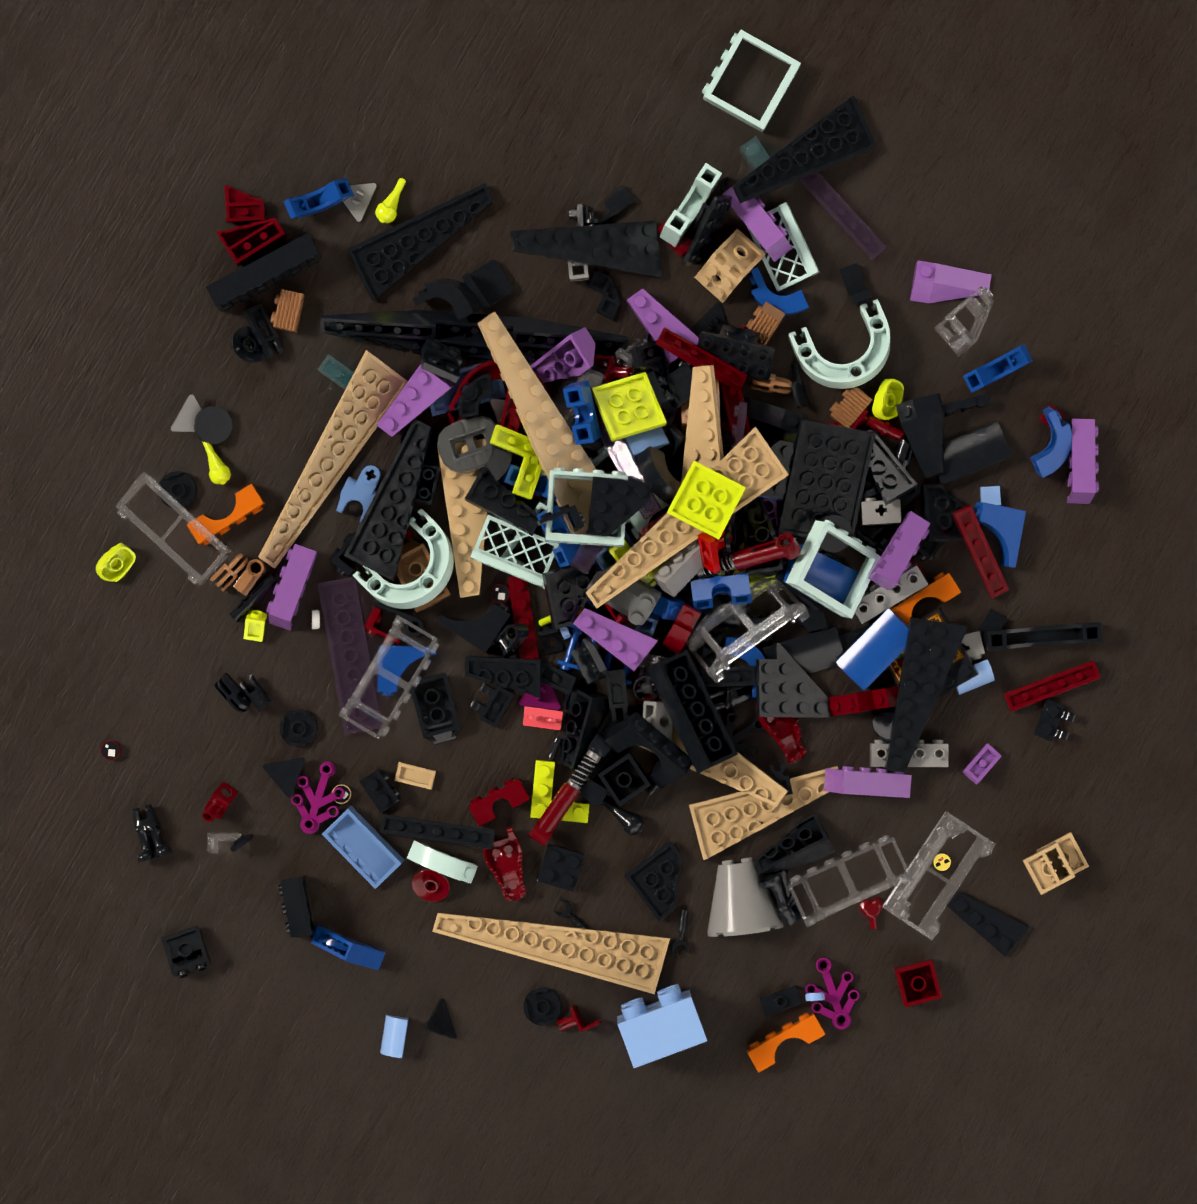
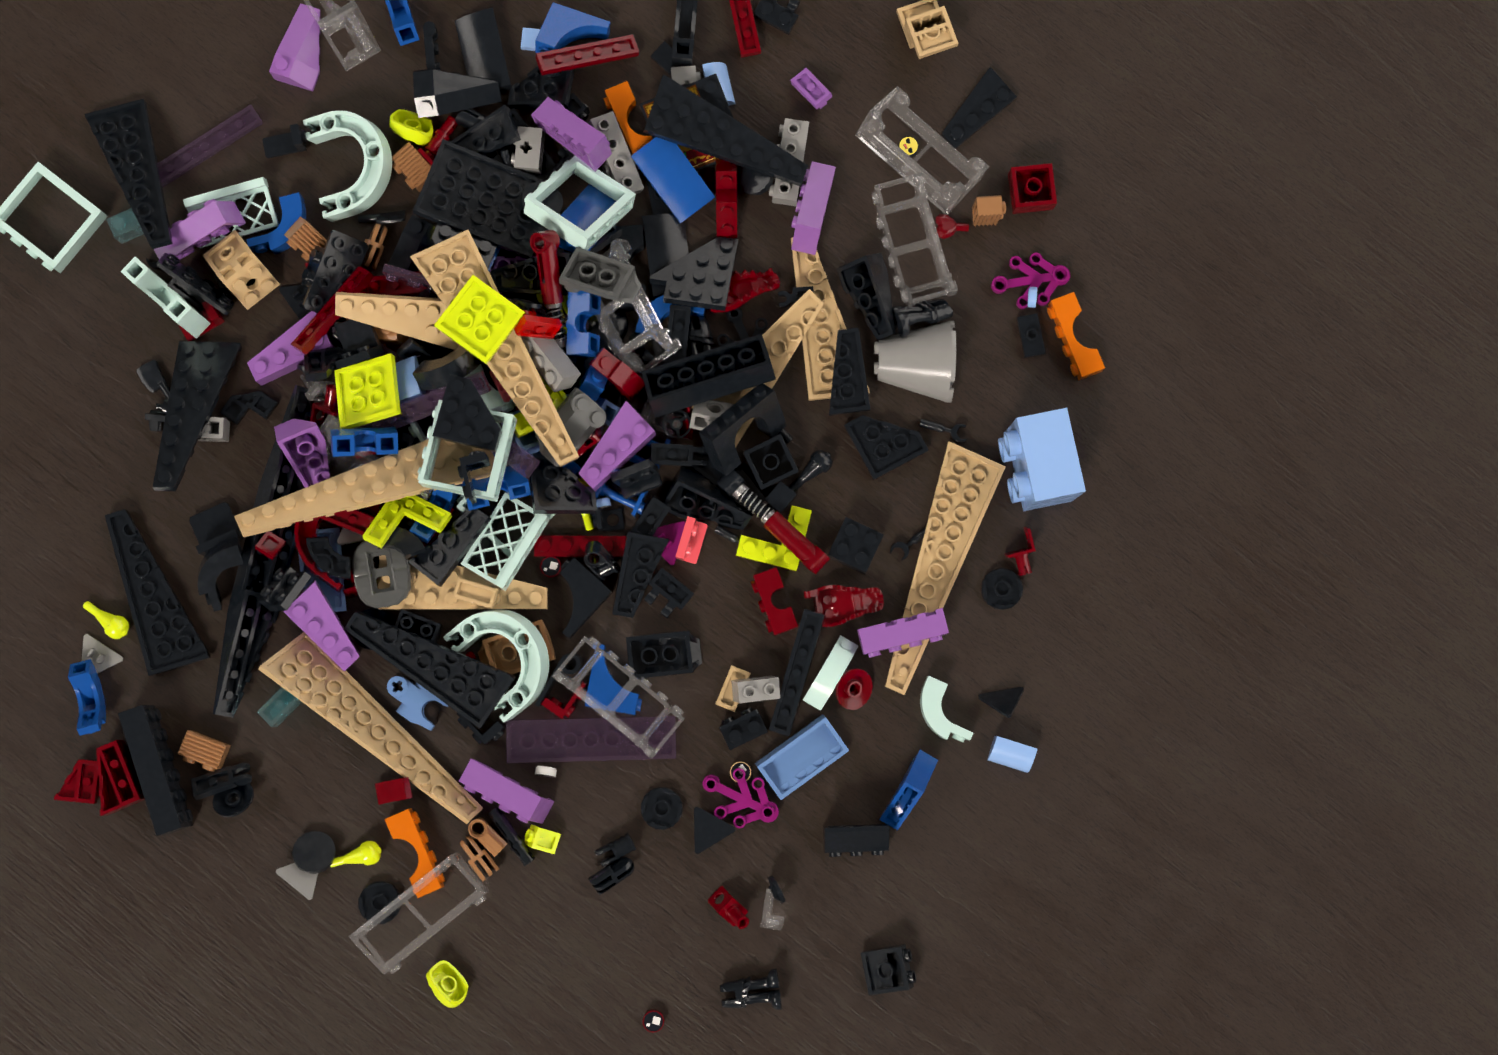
camera: 85 degrees left, 5 degrees down
(277, 486) = (393, 790): none -> dark red tile
(416, 796) = (755, 689): none -> light grey brick
(427, 956) = (932, 712): none -> light aqua arch
(463, 531) = (475, 593): none -> tan tile
(477, 340) = (270, 545): none -> dark red plate
(487, 922) = (903, 632): none -> medium lavender wedge
(712, 839) = (849, 382): none -> black wing
(763, 601) = (600, 276): none -> dark grey slope
(889, 944) = (988, 210): none -> medium nougat brick

